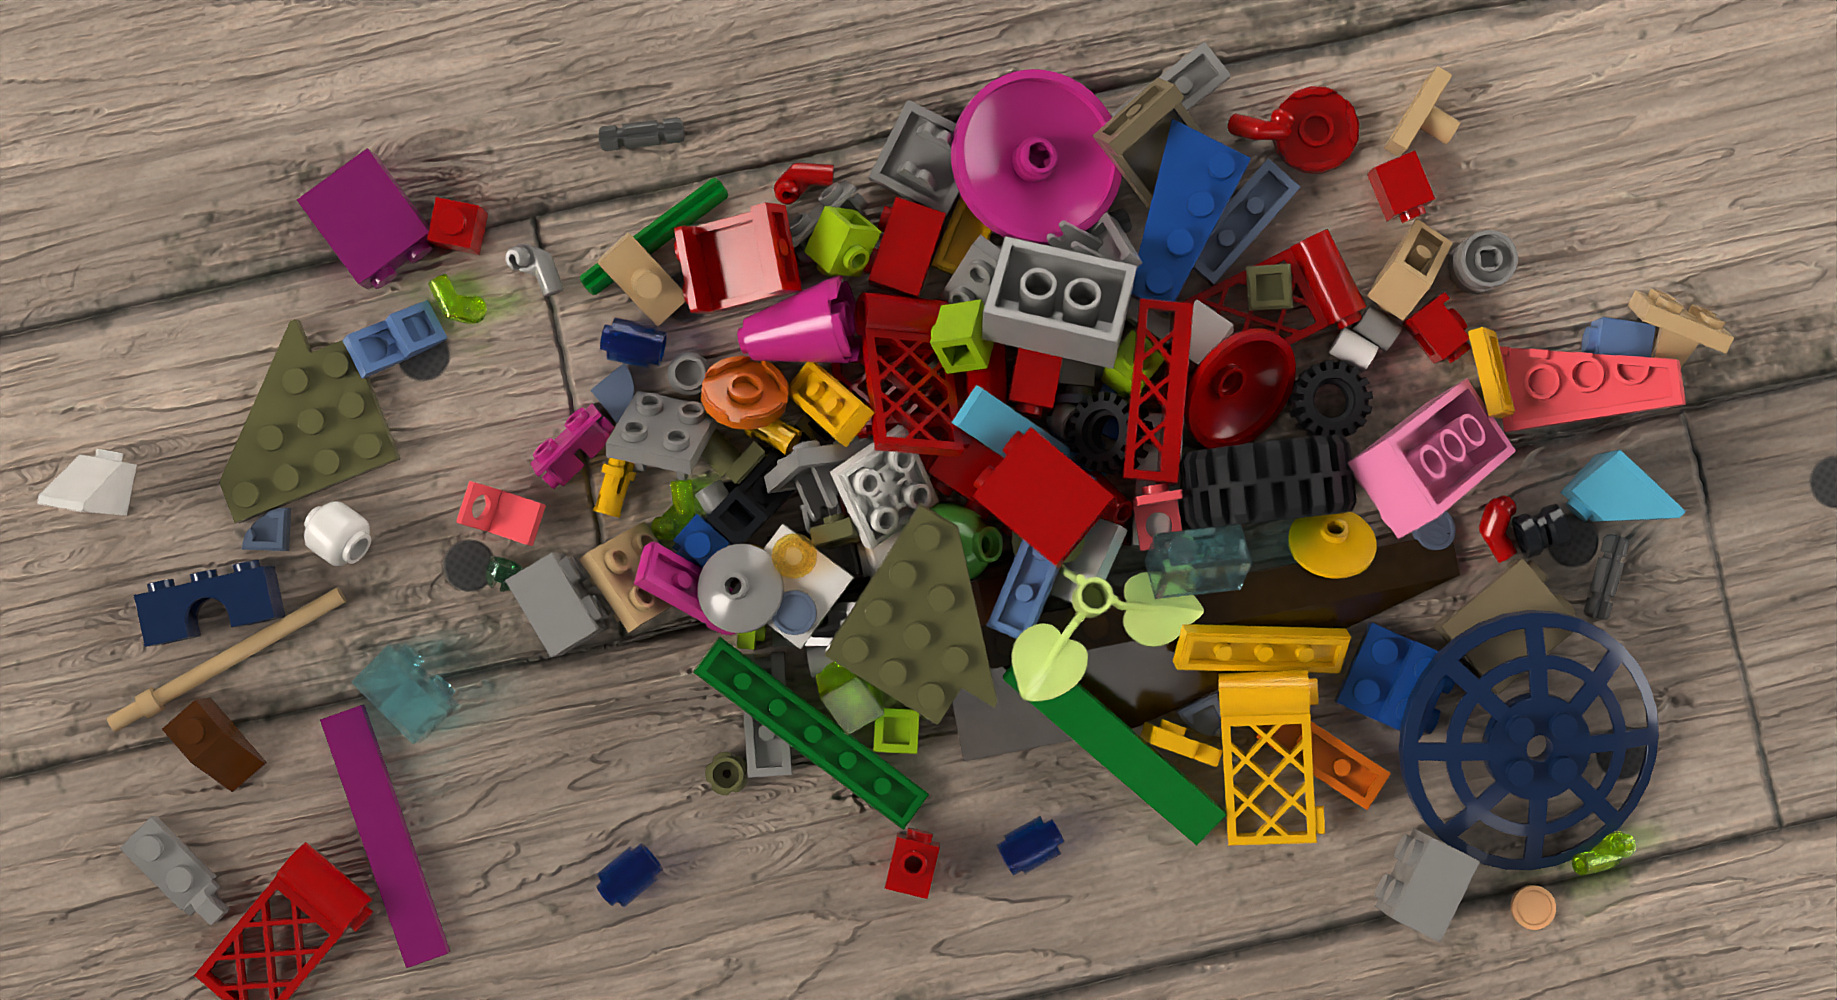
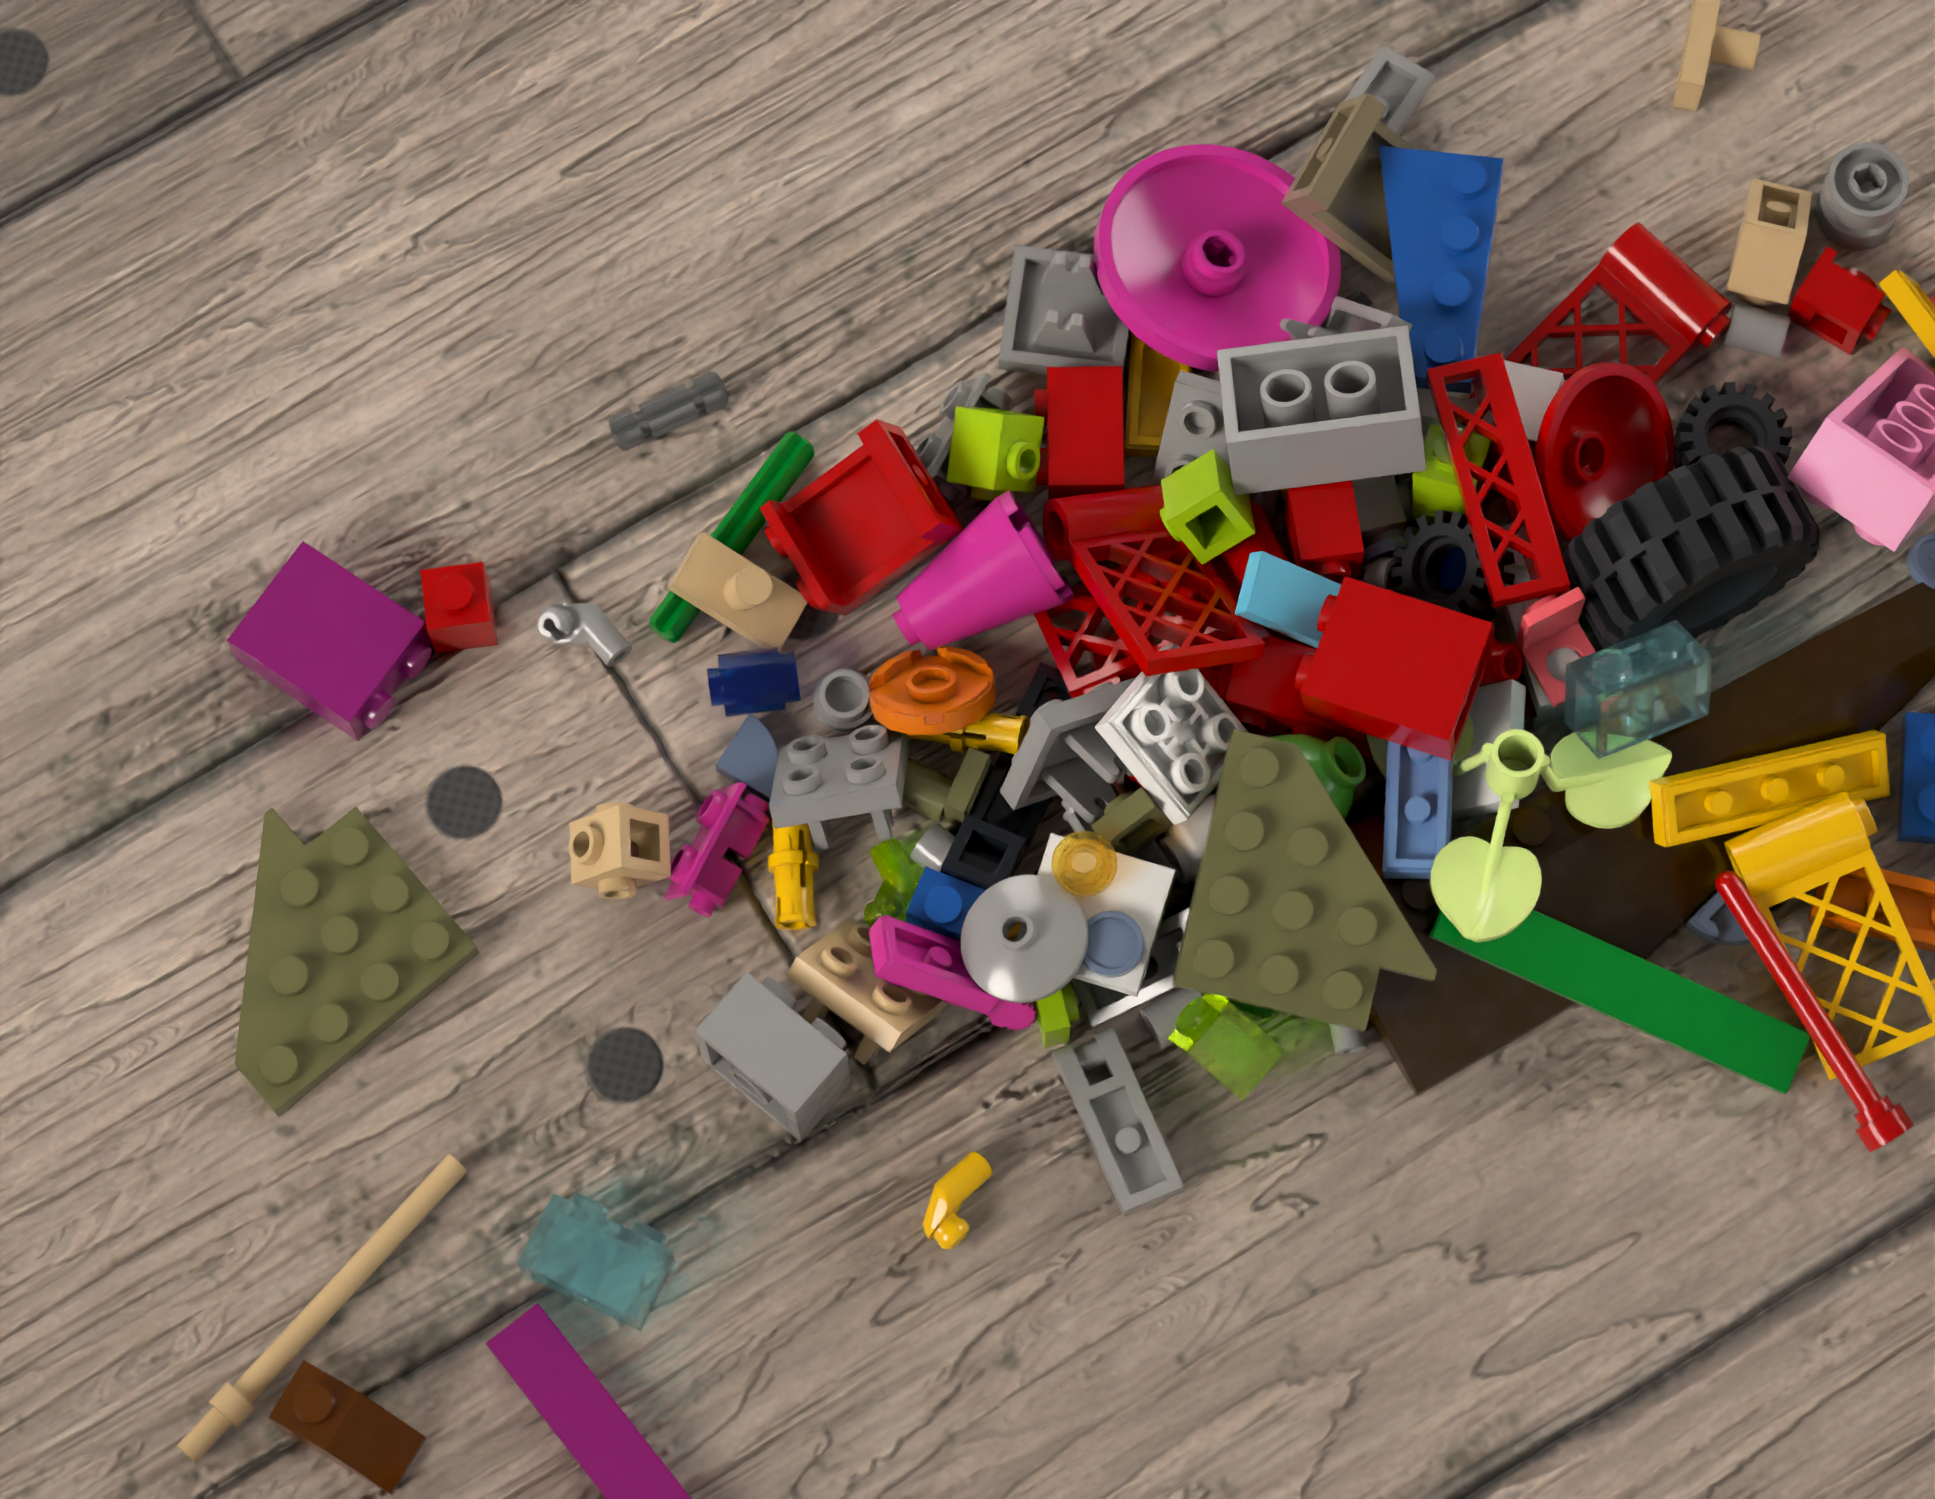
camera: 20 degrees left, 15 degrees down
(93, 484) = (65, 1118): white slope -> none
(171, 611) = (224, 1254): dark blue arch -> none
(270, 532) = (327, 1112): sand blue tile -> none
(337, 533) = (426, 1074): white head -> none
(394, 339) = (421, 789): medium blue slope -> none
(456, 306) = (493, 719): clear neon green arm -> none
(499, 570) = (676, 1049): clear green hinge -> none
(503, 513) = (652, 970): coral bracket -> none
(506, 429) = (619, 849): none -> tan brick
(628, 875) = (1003, 1409): clear blue brick -> none
(644, 725) = (947, 1196): none -> yellow arm
(724, 785) = (1094, 1205): olive plate -> none
(799, 178) = (907, 392): red arm -> none
(810, 733) = (1191, 1118): green tile -> none
(829, 403) = (1056, 655): yellow tile -> none
(897, 731) = (1309, 1079): lime plate -> none
(913, 863) = (1400, 1252): red brick -> none
(1031, 845) = (1556, 1171): clear blue brick -> none
(1171, 737) = (1701, 959): yellow plate -> none
(1245, 219) = (1524, 251): sand blue plate -> none
(1248, 883) = (1877, 1115): none -> red piece
(1257, 129) = (1497, 129): red arm -> none
(1269, 287) = (1591, 321): olive tile -> none
(1322, 130) = (1572, 112): red tile -> none
(1332, 544) = (1809, 621): yellow dish -> none
(1353, 349) = (1736, 365): white hinge -> none
(1401, 187) = (1716, 141): red brick -> none

